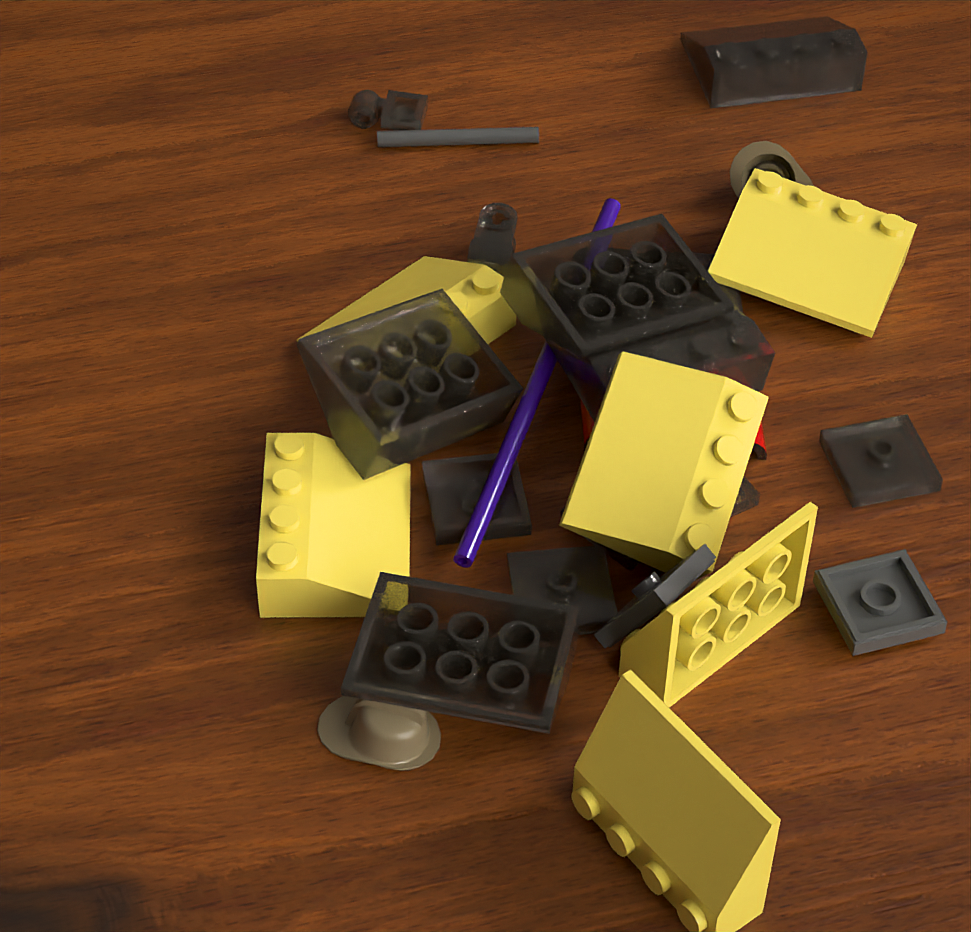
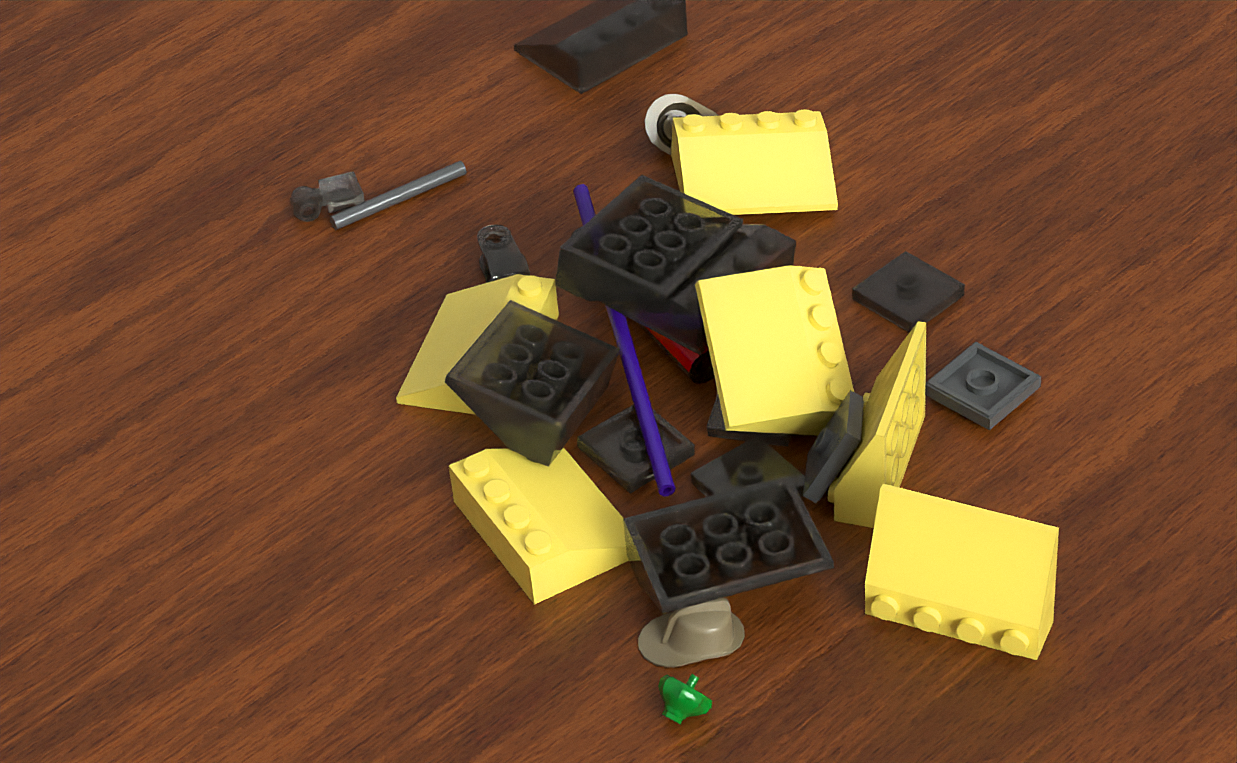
camera: 25 degrees left, 5 degrees down
(309, 796) = (682, 699): none -> green piece

